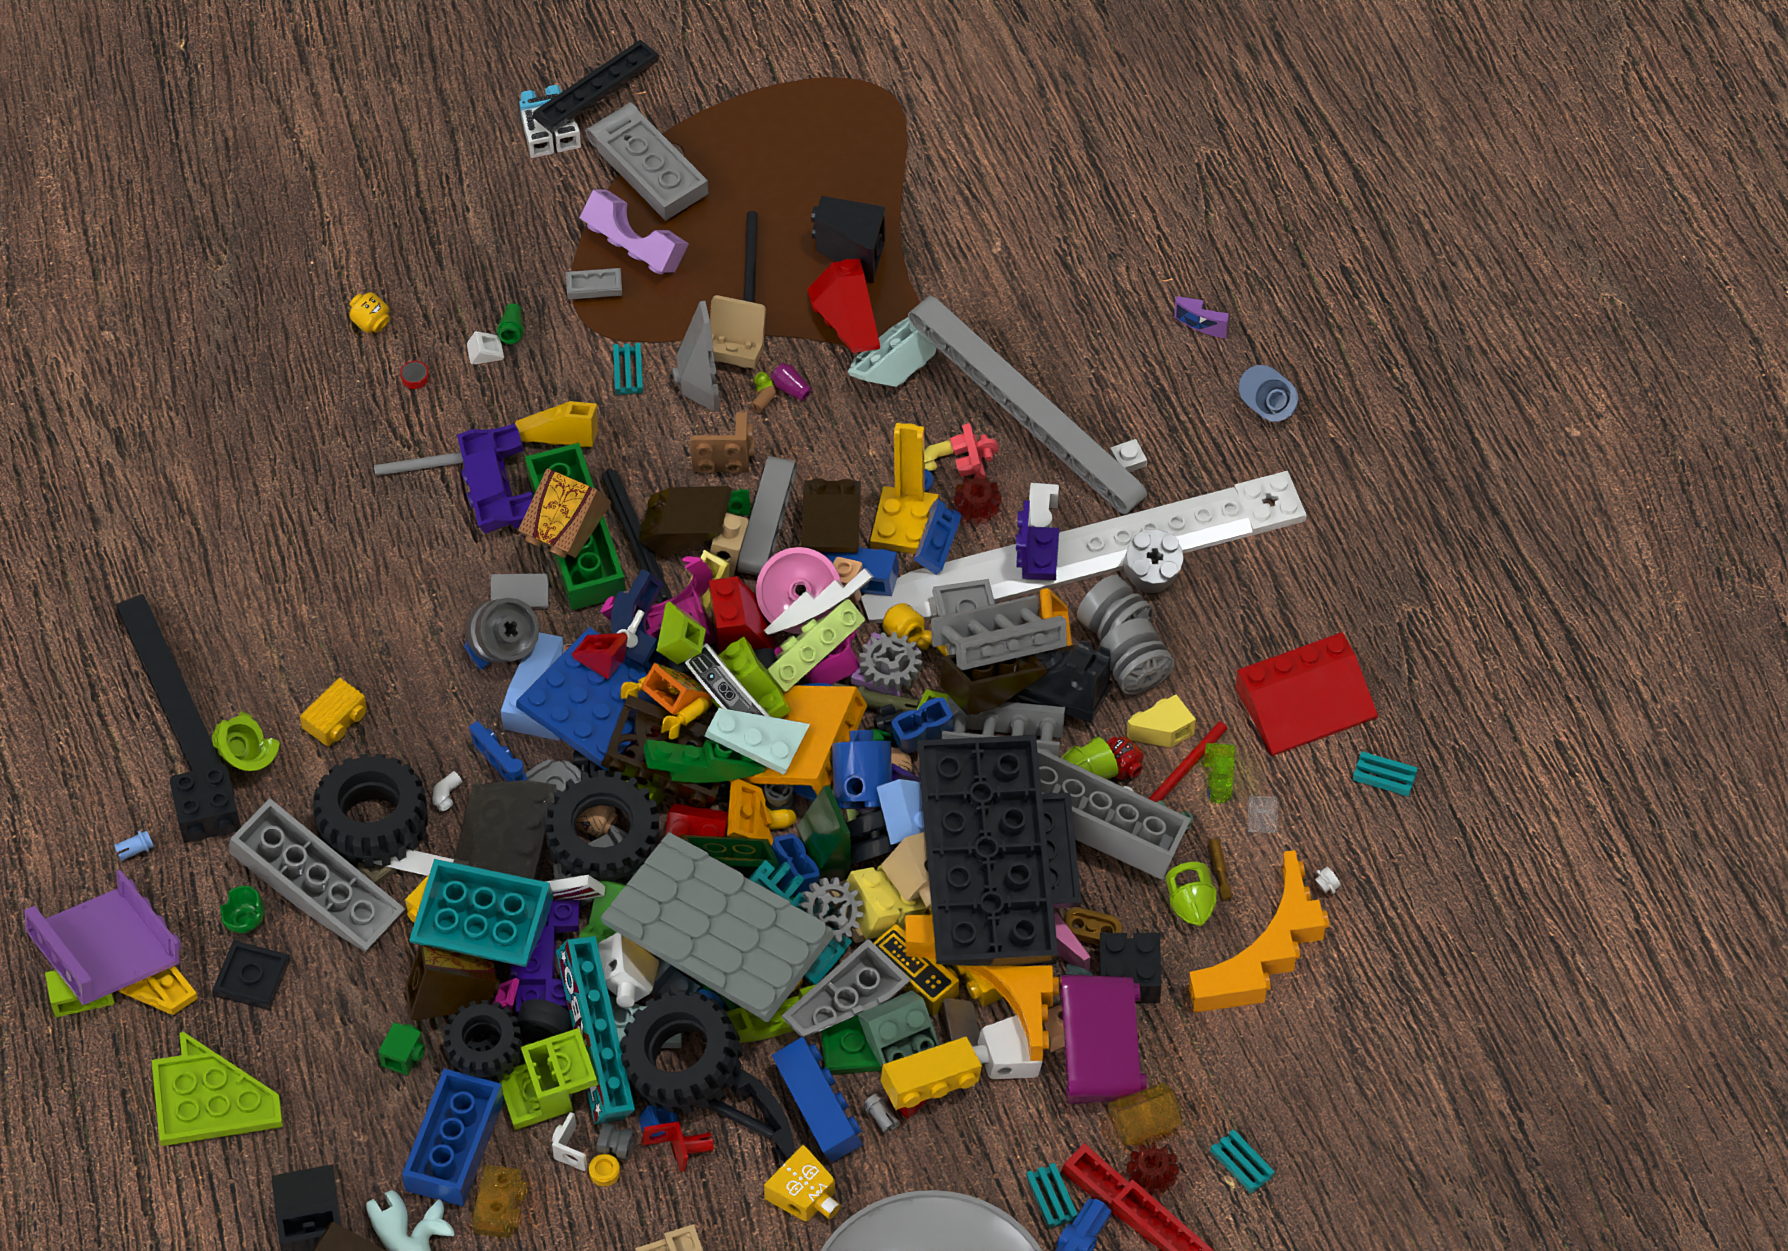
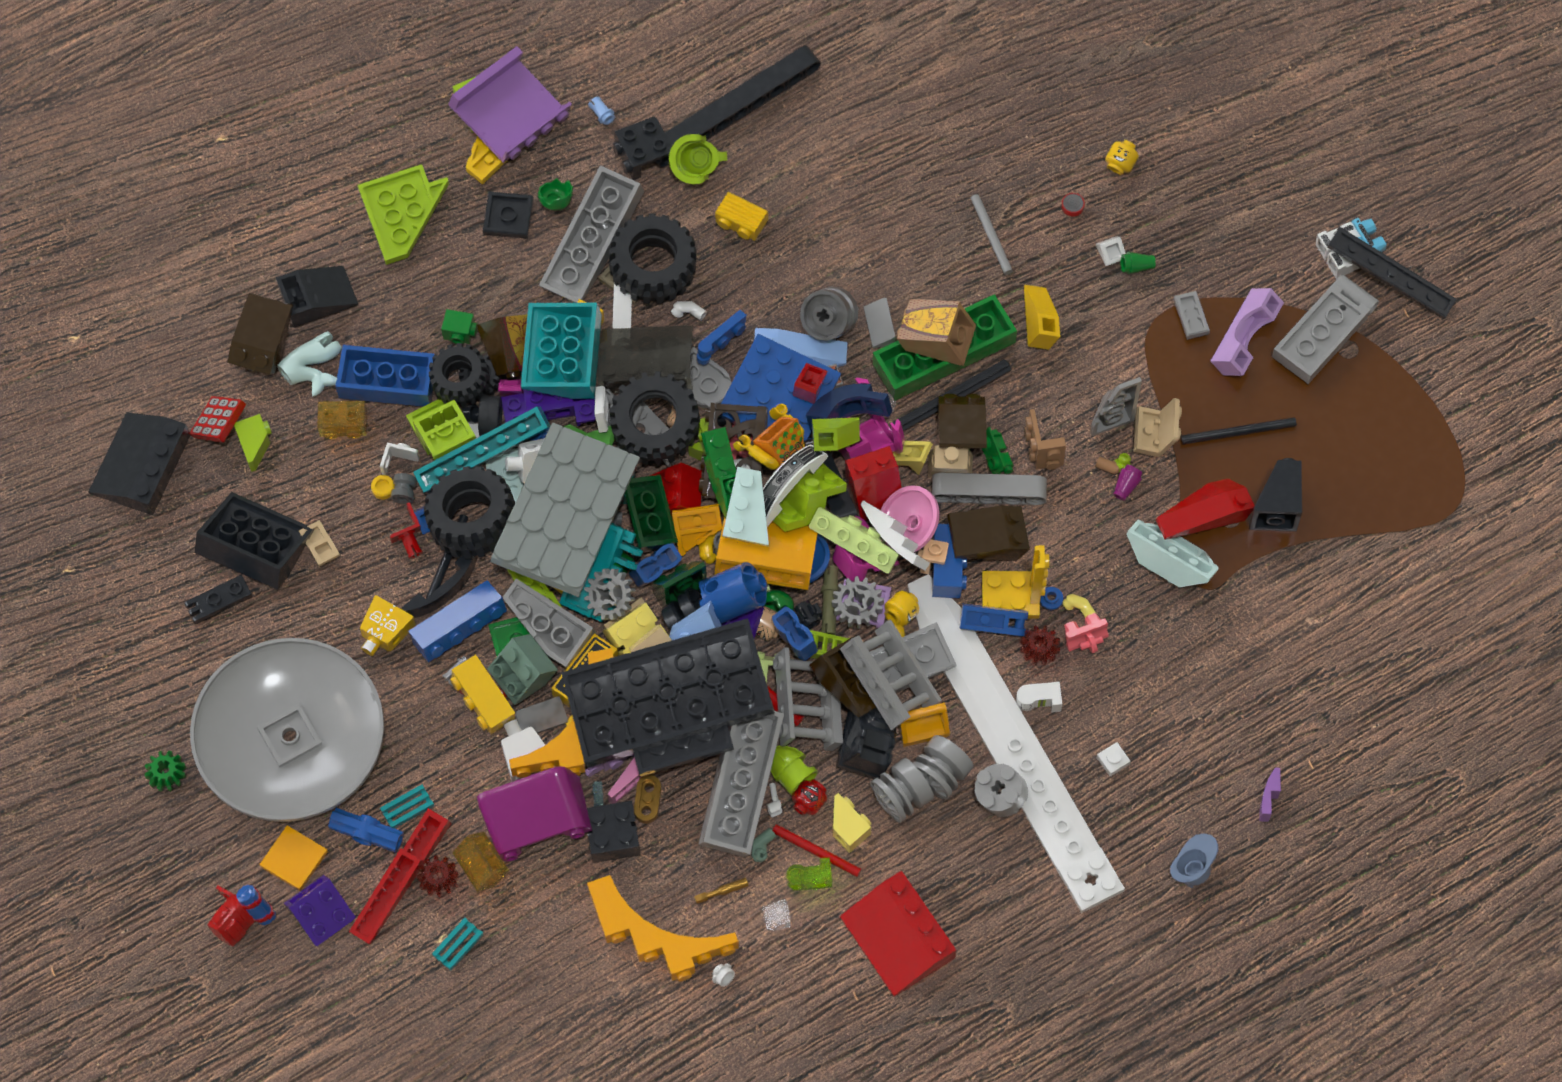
camera: 80 degrees right, 10 degrees up
(487, 476) = (979, 275): dark purple bracket -> none
(627, 350) = (1094, 355): teal tile -> none
(630, 632) = (826, 399): white hand -> none
(1027, 405) = (1133, 664): light grey beam -> none
(1036, 548) = (993, 693): dark purple bracket -> none
(1194, 900) = (685, 868): lime helmet -> none
(1385, 769) = (839, 988): teal tile -> none

